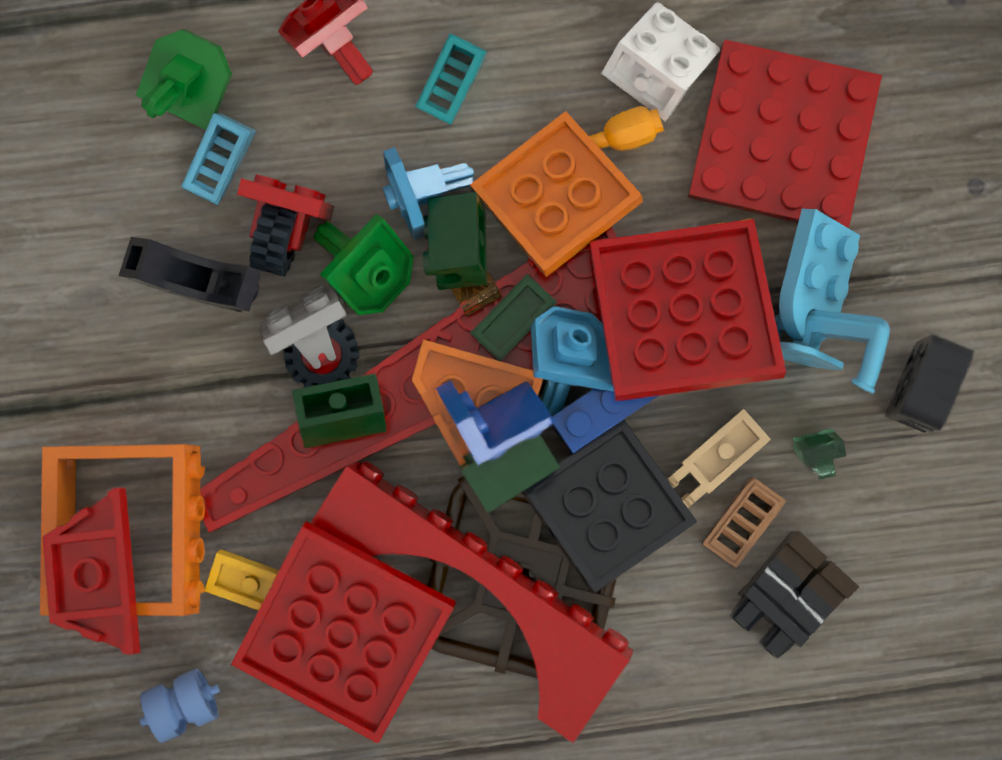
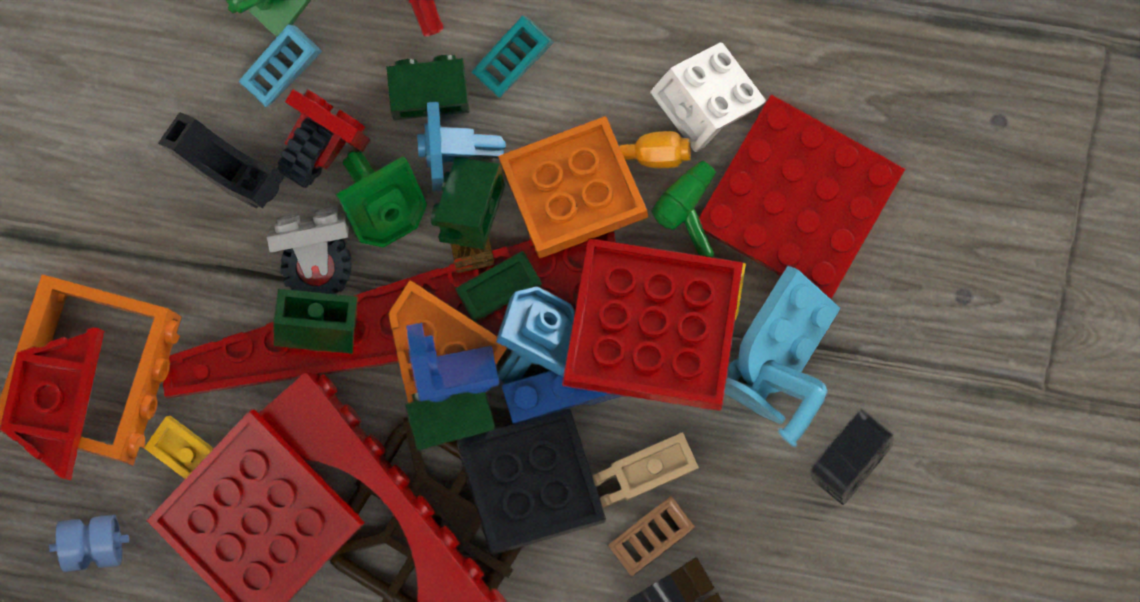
camera: 20 degrees right, 5 degrees down
(366, 135) = (416, 84): none -> dark green brick
(667, 181) = (679, 203): none -> green piece
(819, 451) = (741, 491): clear green tile -> none

